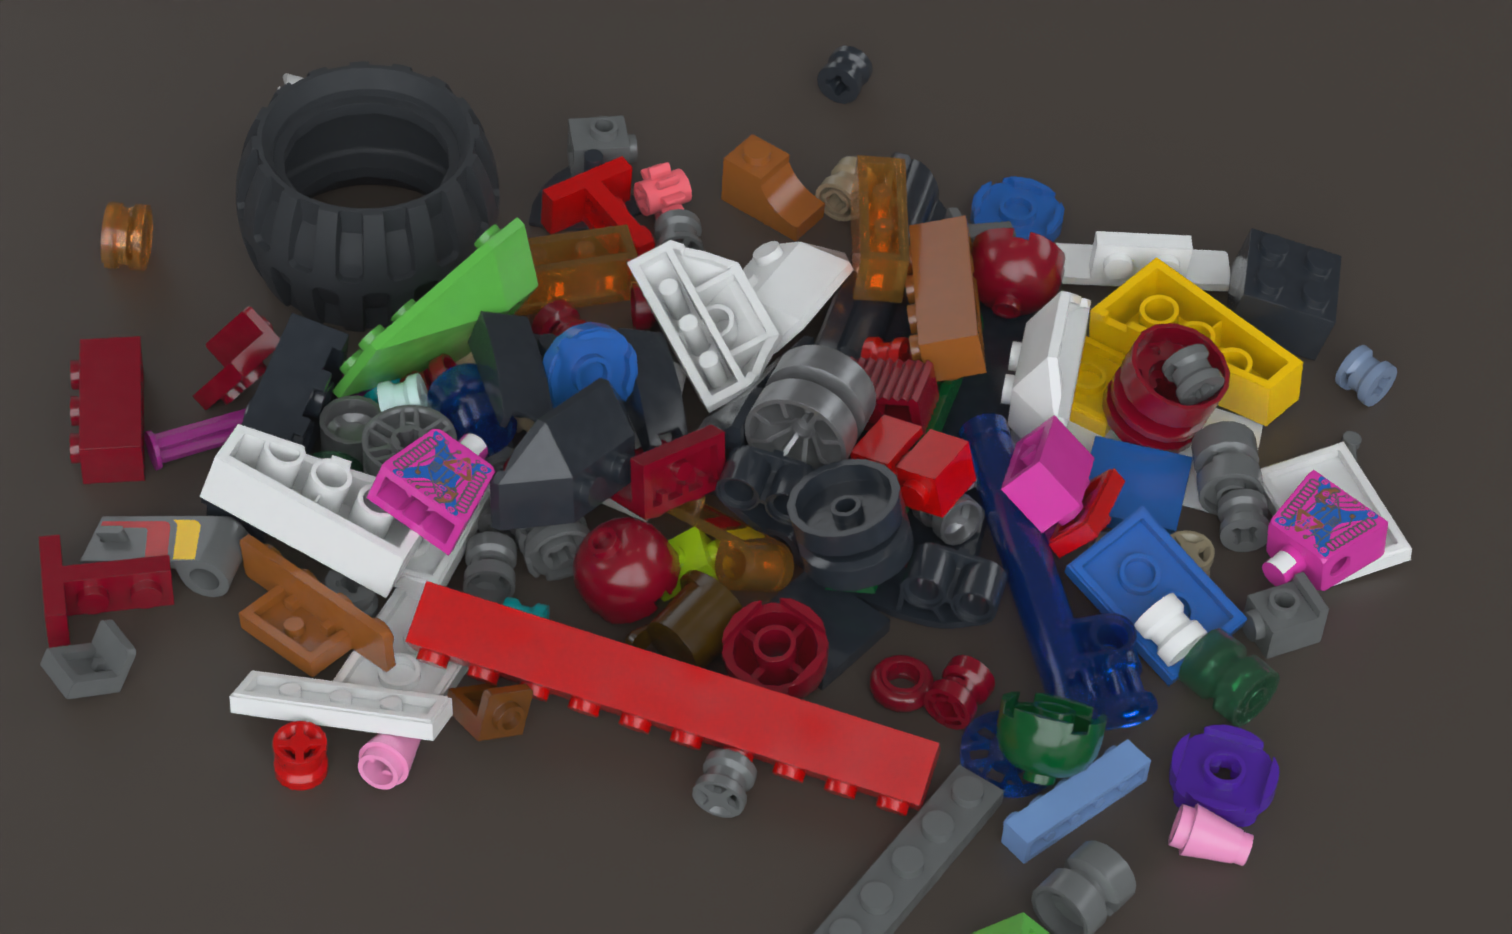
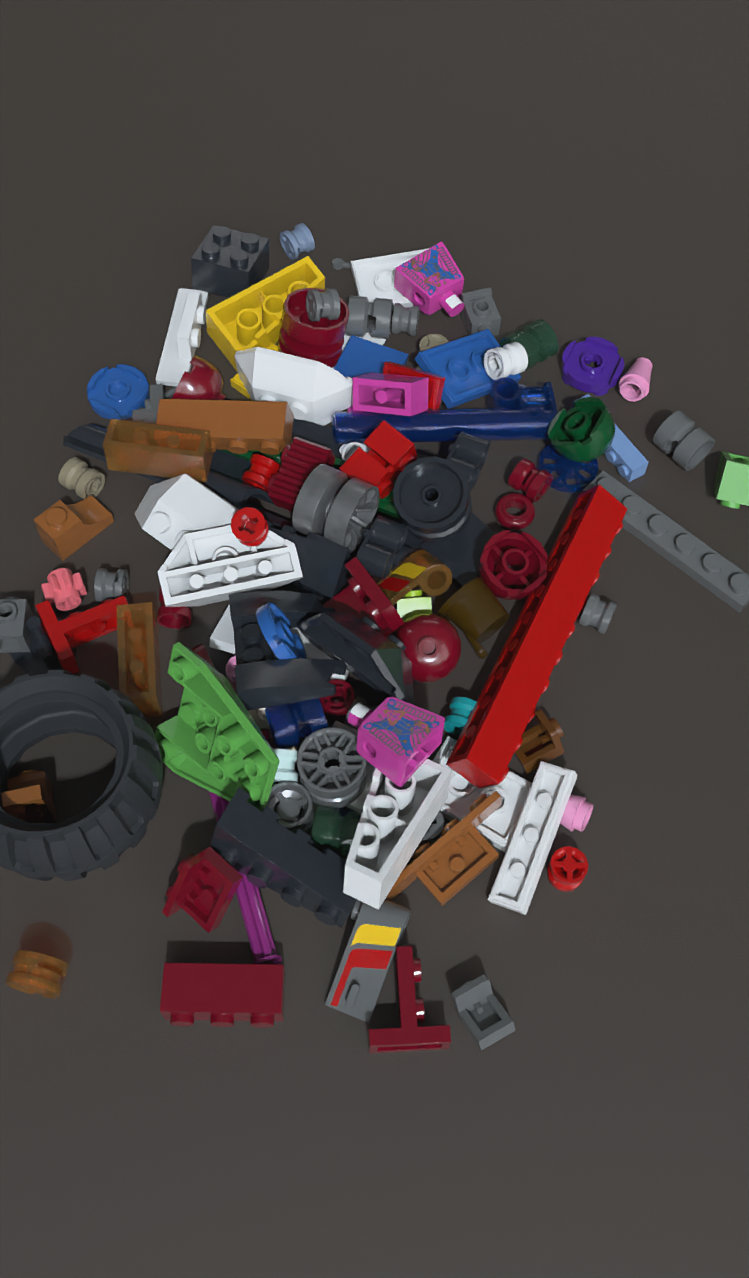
camera: 80 degrees left, 15 degrees up
(346, 185) = (30, 797): none -> dark orange arch
(757, 321) = (255, 532): none -> red wheel

